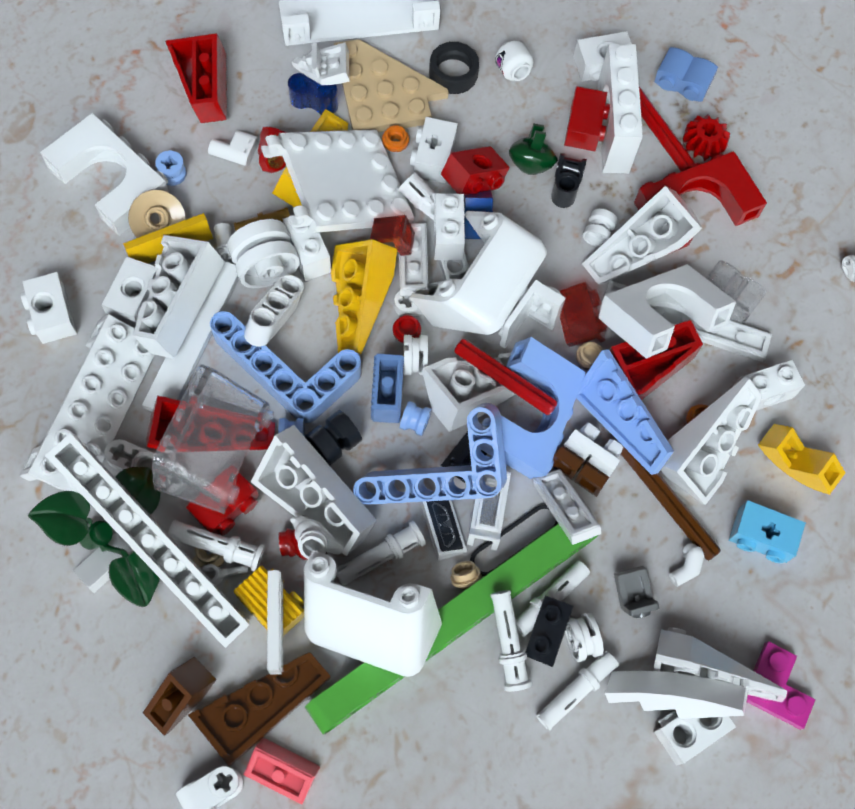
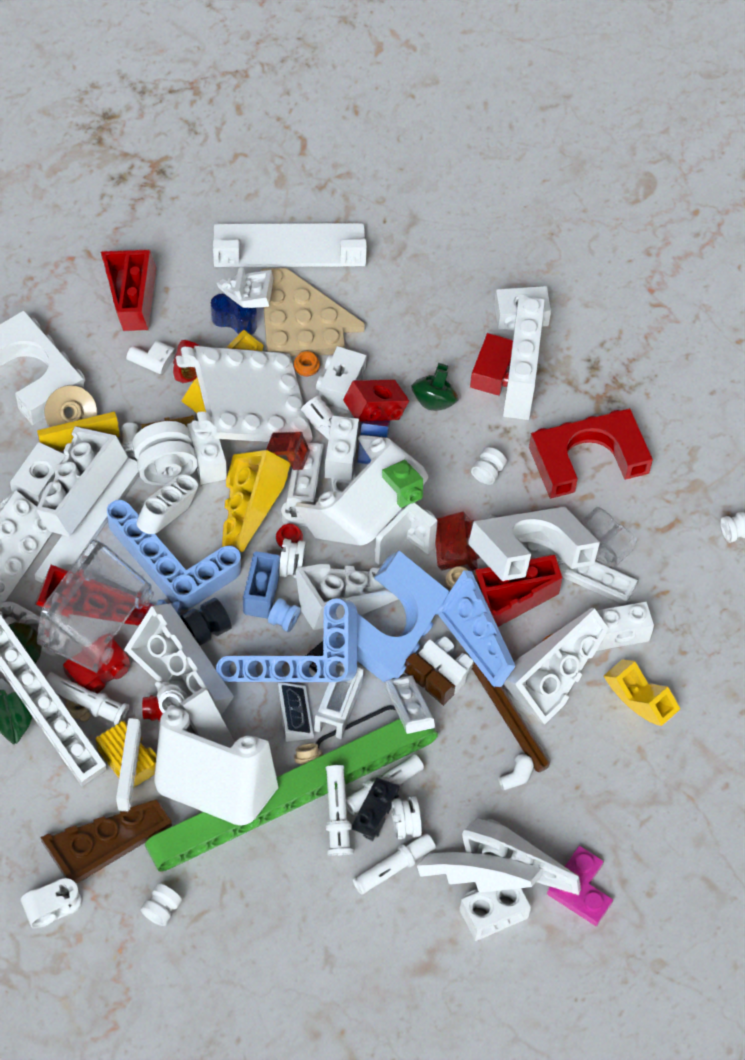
camera: 10 degrees right, 10 degrees down
(177, 172) = (95, 372): light blue wheel -> none
(179, 695) = (36, 817): reddish brown slope -> none
(225, 572) = (89, 727): white hand -> none
(281, 770) = (115, 896): coral slope -> none
(332, 777) = (161, 904): none -> white wheel
(358, 564) = (206, 718): none -> white tile
(392, 547) = (251, 720): white pin -> none
(454, 51) = (379, 288): black tyre -> none
(505, 377) = (372, 586): red axle -> none
(514, 60) = (432, 303): white head -> none
(527, 260) = (405, 482): none -> bright green bracket
(568, 177) = (465, 419): black piece -> none
(635, 592) = (462, 787): dark grey bracket -> none
(652, 232) = (529, 474): white wedge -> none
(664, 133) = (565, 380): red axle -> none
(686, 74) = (600, 332): medium blue brick -> none
(706, 137) = (608, 393): red gear -> none
(782, 530) = (589, 740): medium azure brick -> none

